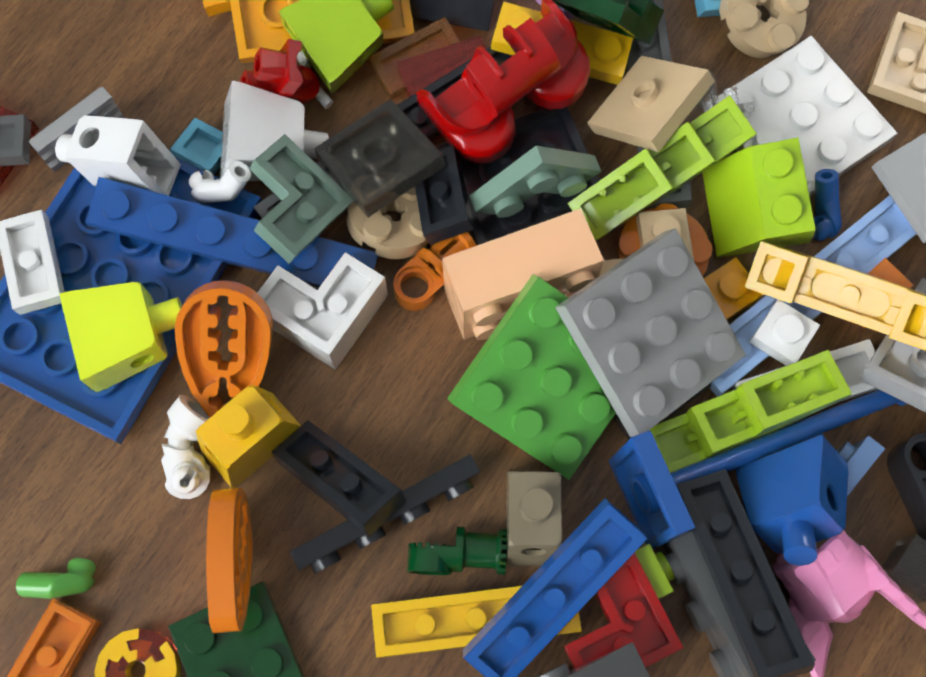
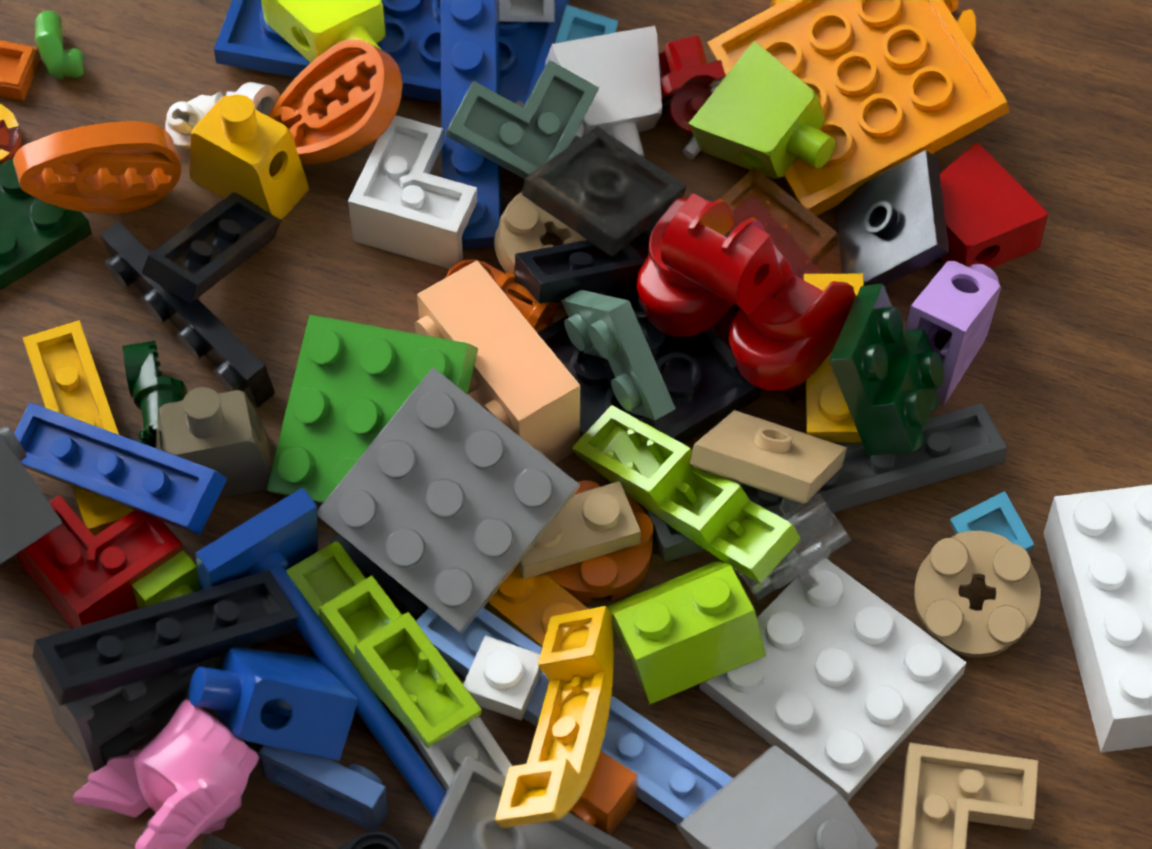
camera: 75 degrees right, 15 degrees down
(220, 190) = (529, 53): white arm -> none
(827, 205) = (712, 722): blue arm -> none

